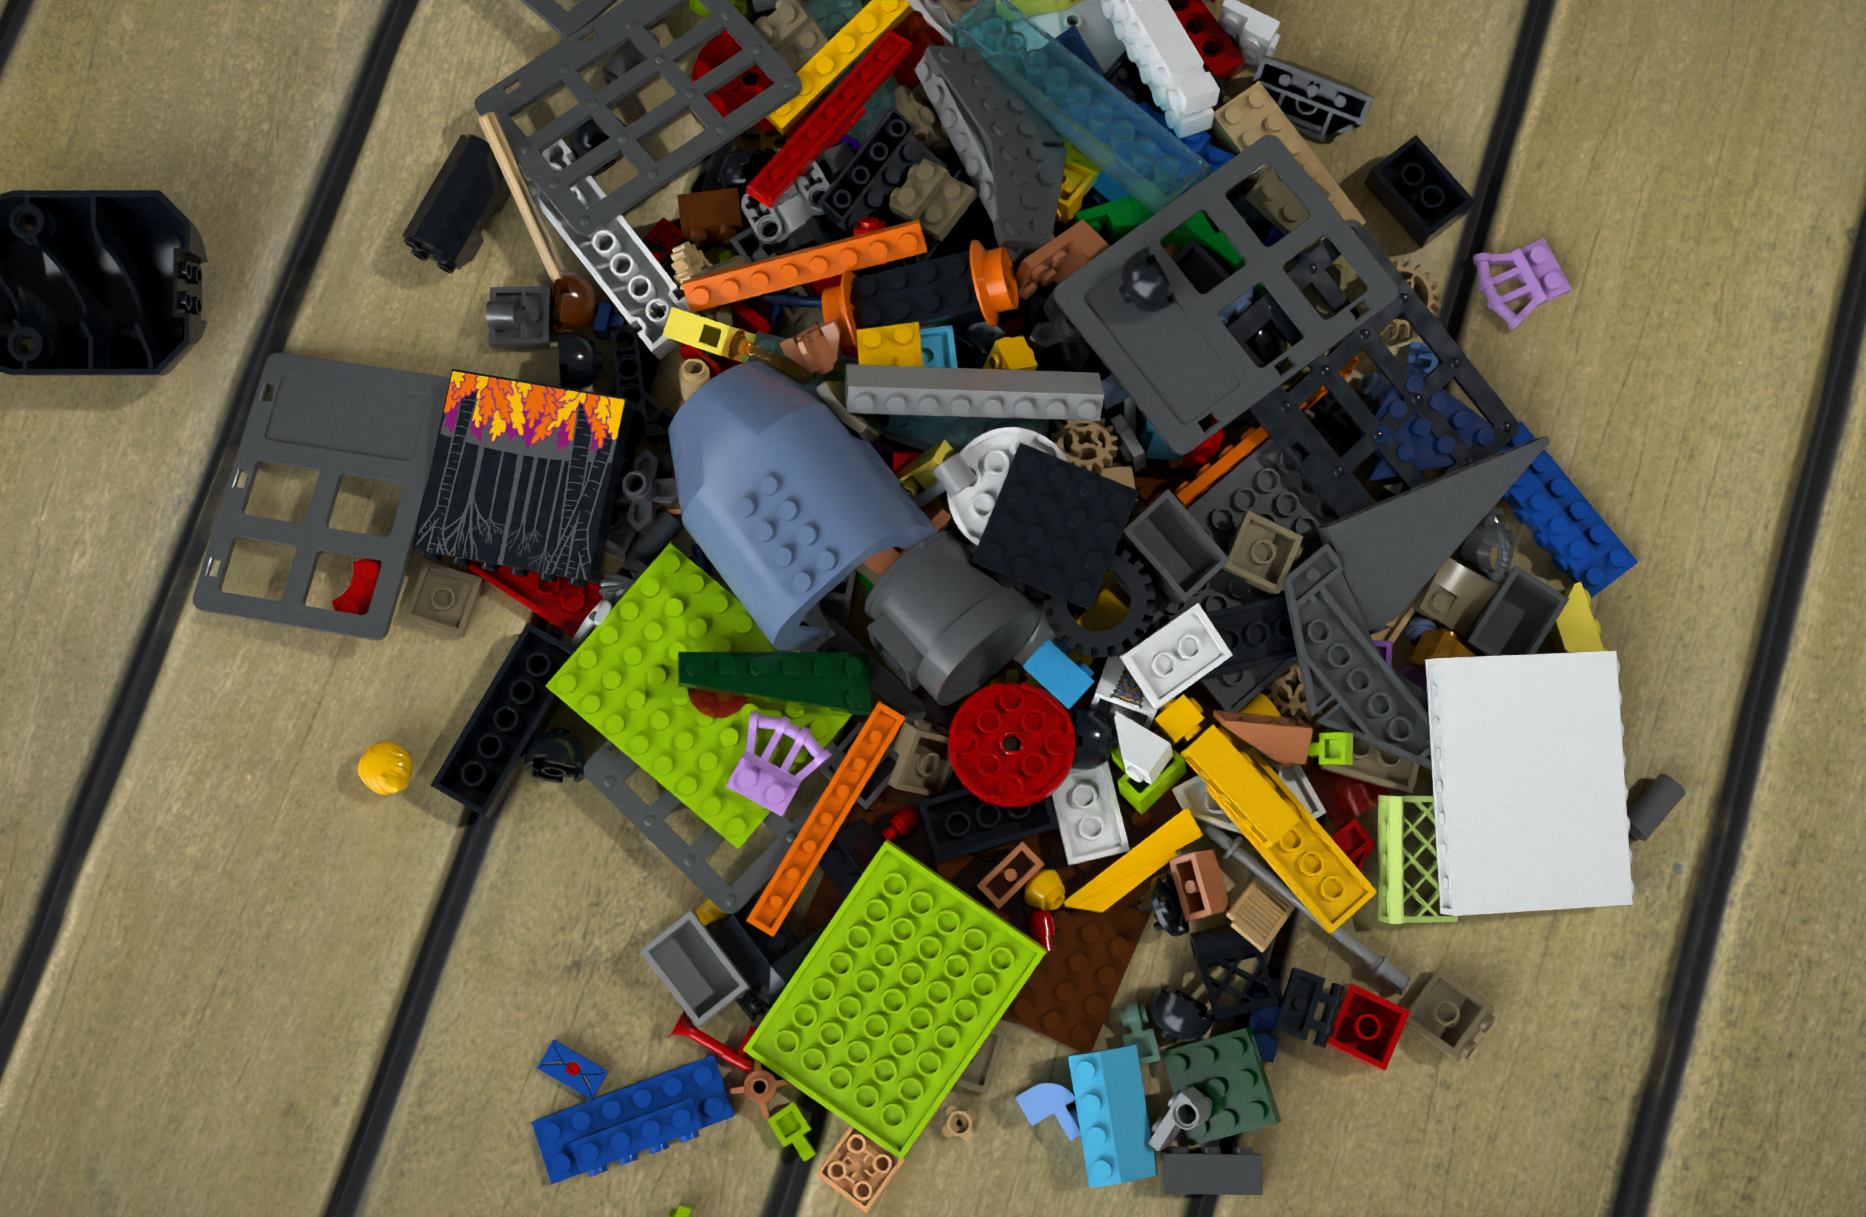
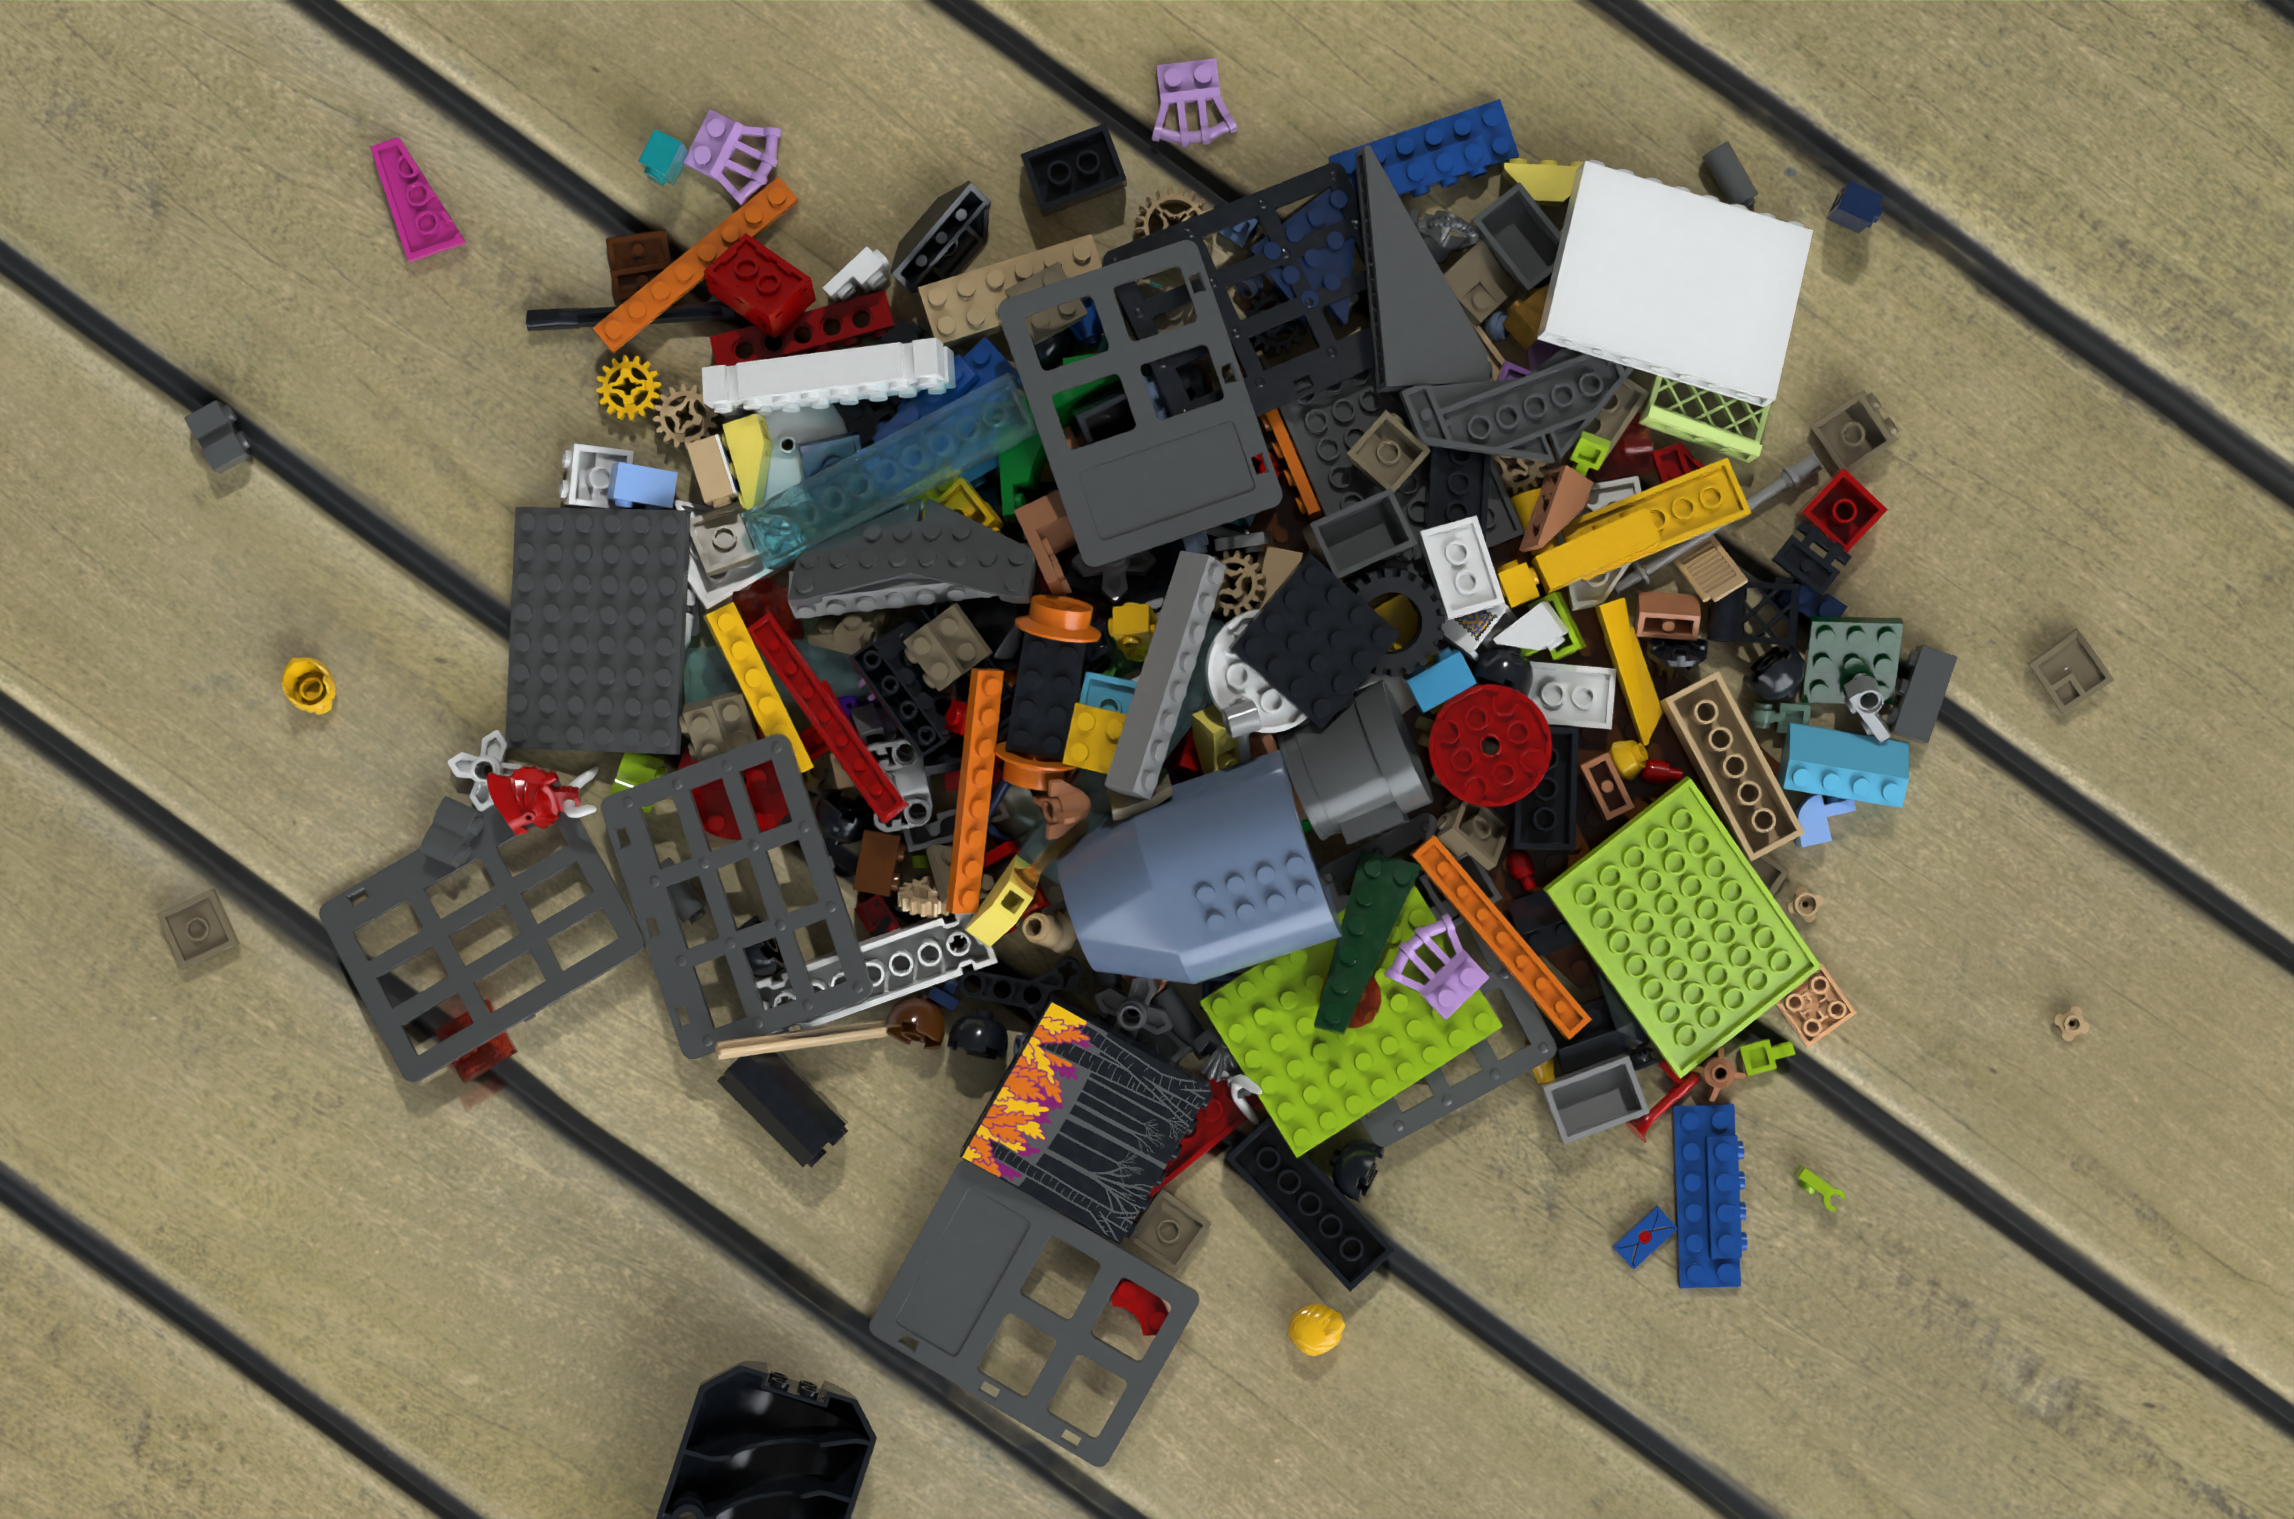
camera: 65 degrees left, 10 degrees up
(519, 316) = (911, 1078): flat silver plate -> none
(1072, 996) = (1731, 766): none -> tan brick
(1145, 283) = (1113, 477): black cylinder -> none
(1671, 939) = (1856, 207): none -> dark blue brick

